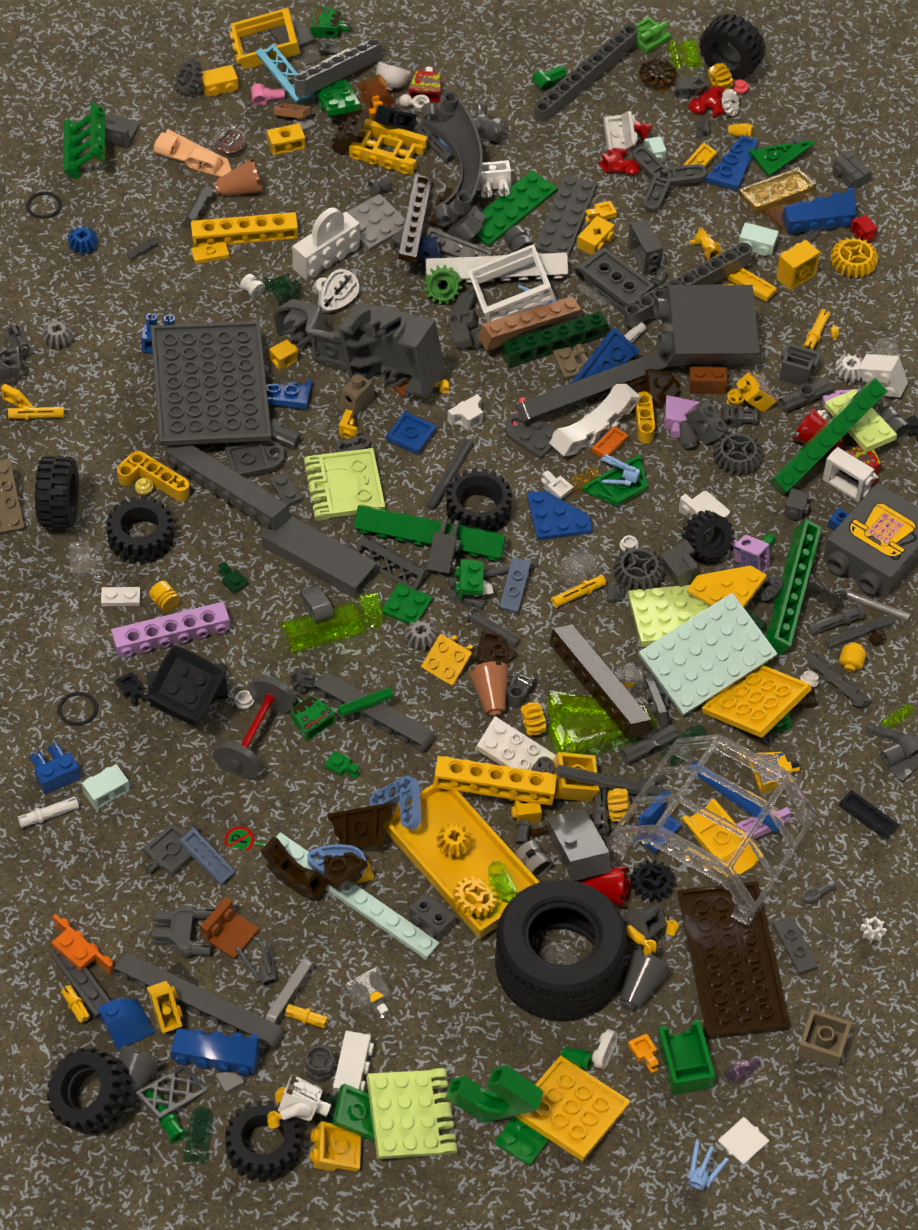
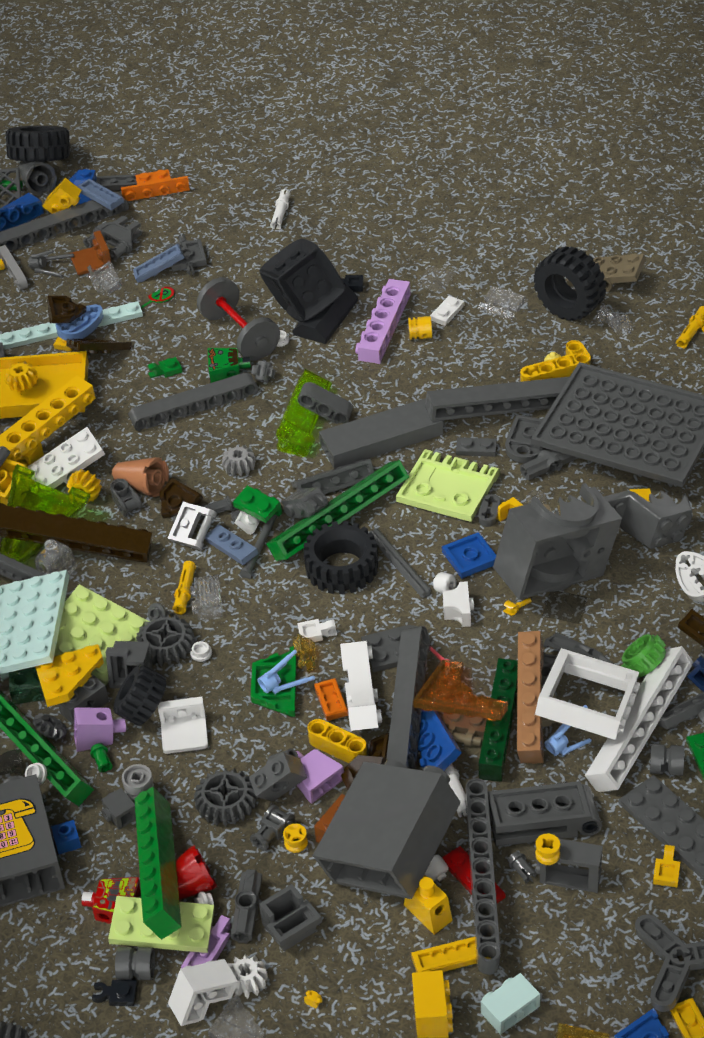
camera: 130 degrees right, 10 degrees down
(57, 772) = (312, 218): blue brick -> none
(75, 1004) = (109, 172): yellow axle -> none
(78, 694) = (358, 246): black piece -> none
(105, 786) = (272, 239): light aqua brick -> none
(138, 970) = (100, 194): none -> sand blue plate
(144, 547) = (504, 348): black tyre -> none
(232, 580) = (405, 377): dark green plate -> none
(253, 894) = (105, 279): none -> clear bracket
(289, 395) = (596, 476): blue wing -> none
(300, 879) = (107, 298): dark brown arch -> none
(365, 702) = (198, 388): green axle -> none
(406, 604) = (280, 470): green plate -> none
(407, 789) = (85, 366): medium blue beam -> none
(447, 658) = (188, 465): yellow plate -> none
(450, 435) = (444, 582): none -> white piece
(518, 623) = (186, 523): none -> plate
(544, 763) = (31, 461): dark grey wheel -> none
(555, 517) = (279, 615): blue plate -> none
(566, 364) = (449, 695): none -> clear orange plate
(595, 235) = (629, 838): yellow brick -> none
(659, 240) = (546, 855): none -> yellow wheel
(709, 247) = (535, 943): yellow animal -> none
(751, 387) = (285, 850): yellow torso -> none
(772, 501) = (136, 779): none -> light grey wheel
(814, 335) = (323, 972): yellow pin -> none
(820, 551) = (39, 769): none -> white plate
(852, 466) = (99, 855): white window -> none

